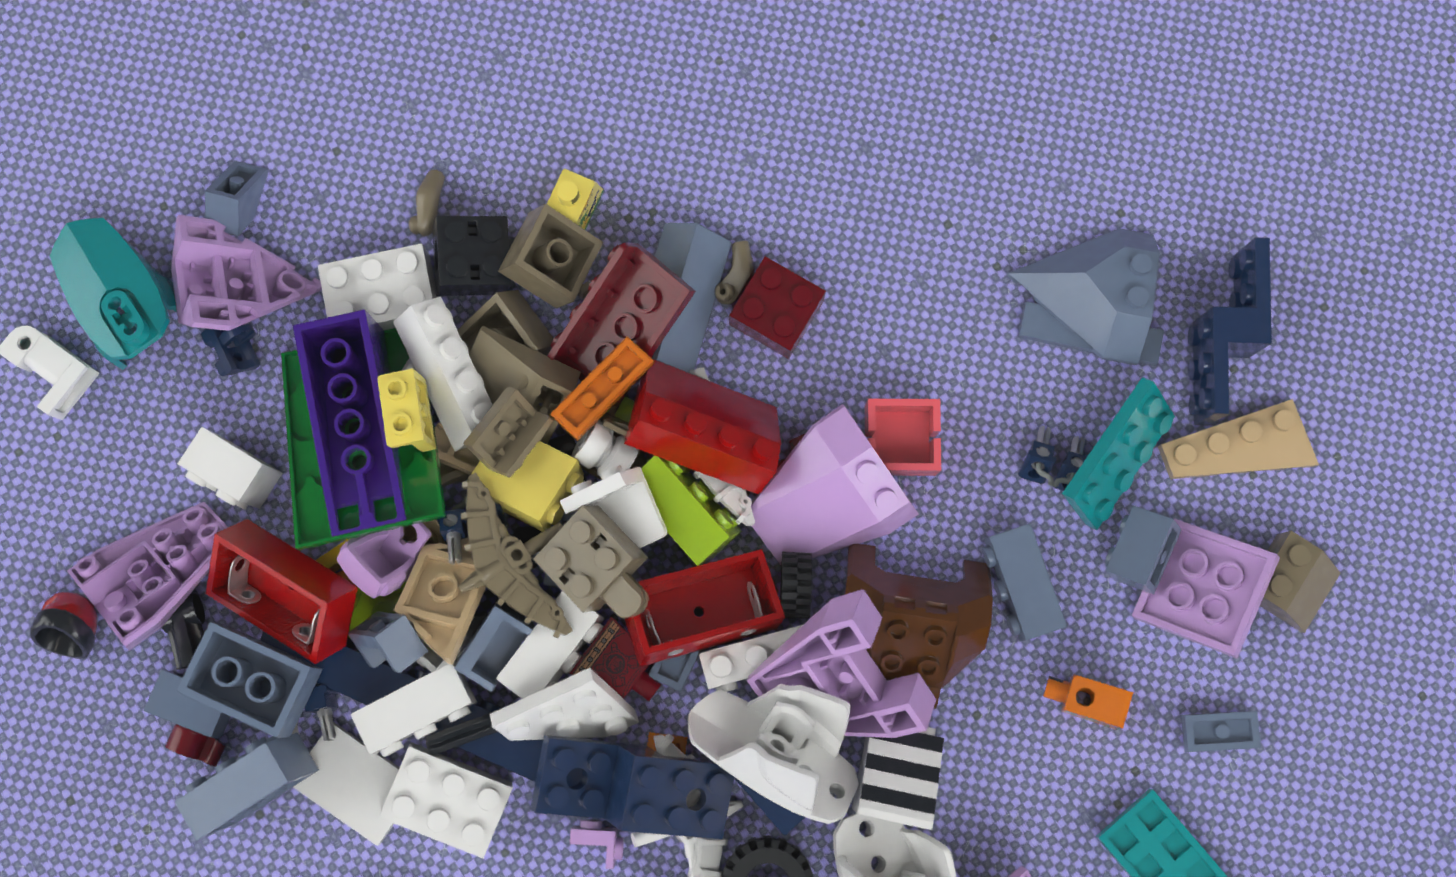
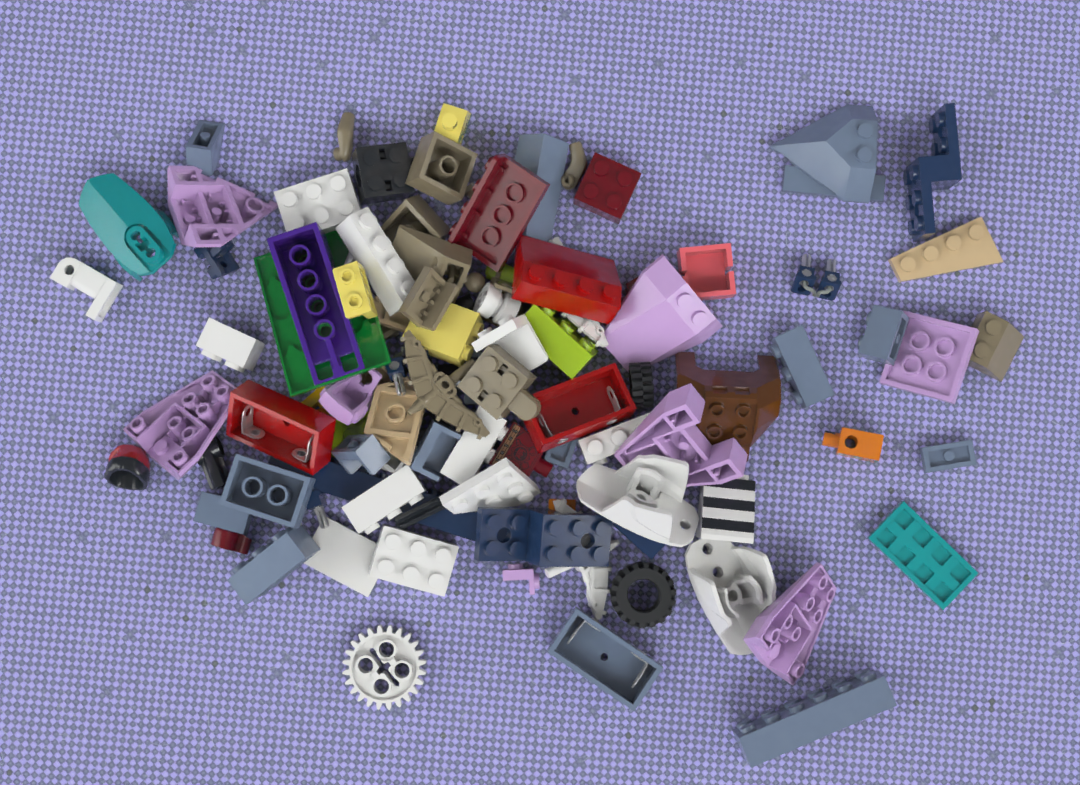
camera: 10 degrees left, 5 degrees up
(602, 388) = (491, 260): orange tile -> none
(1119, 454) = (861, 268): teal plate -> none

